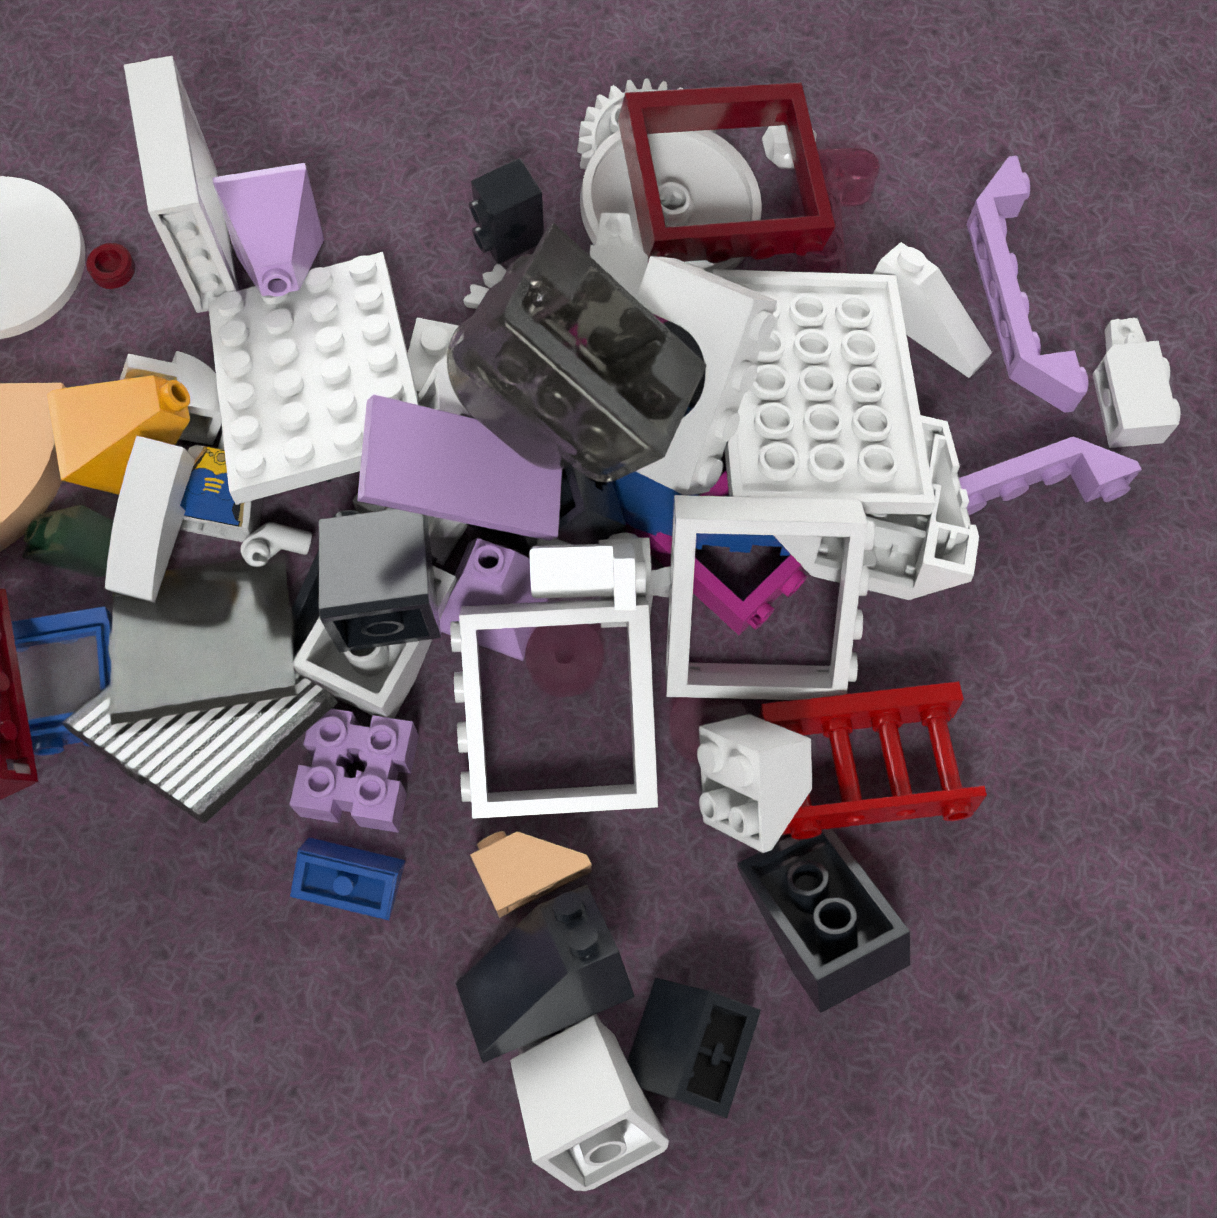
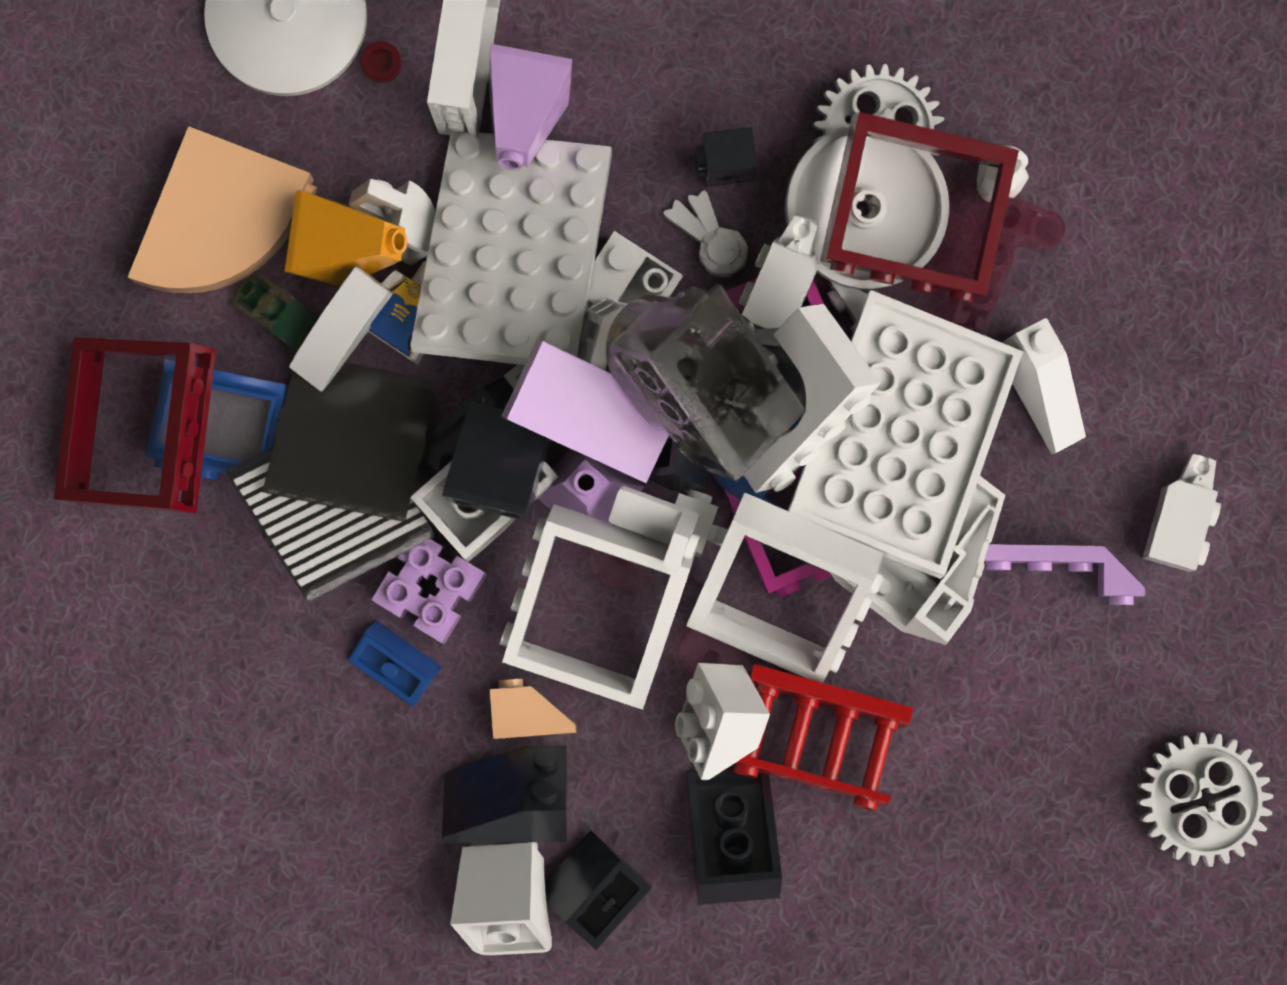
camera: 25 degrees right, 15 degrees up
(272, 538) = (431, 370): white arm -> none
(1050, 376) = (1123, 483): lavender slope -> none

